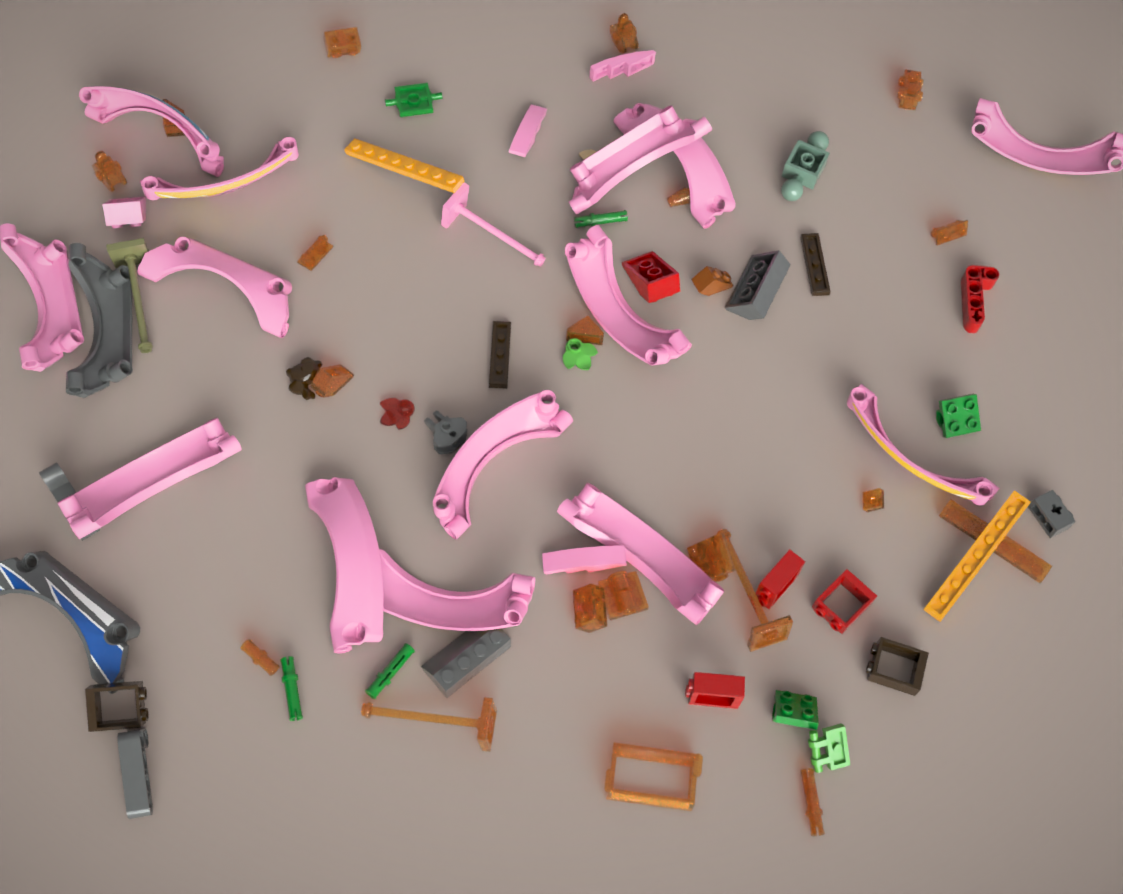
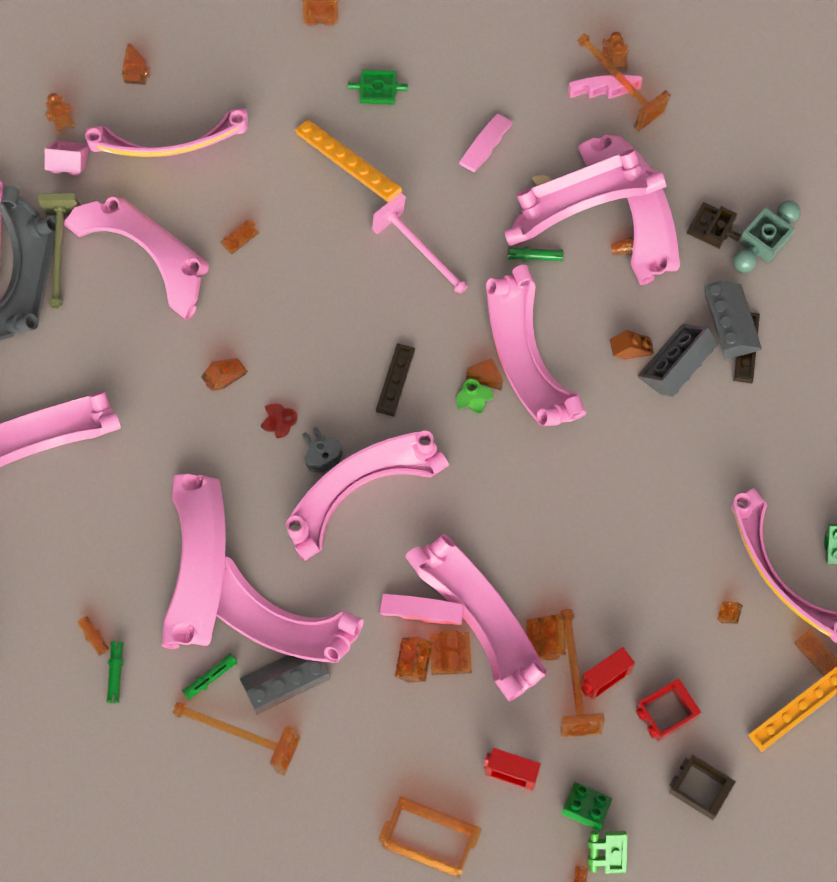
camera: 20 degrees right, 5 degrees up
(112, 102) = (73, 40): bright pink panel -> none
(302, 376) = (196, 364): dark brown animal -> none
(652, 276) = (570, 328): red slope -> none
(670, 77) = (650, 110): none -> clear orange tile
(755, 165) = (713, 225): none -> dark brown plate
(795, 241) = (732, 319): none -> dark grey slope

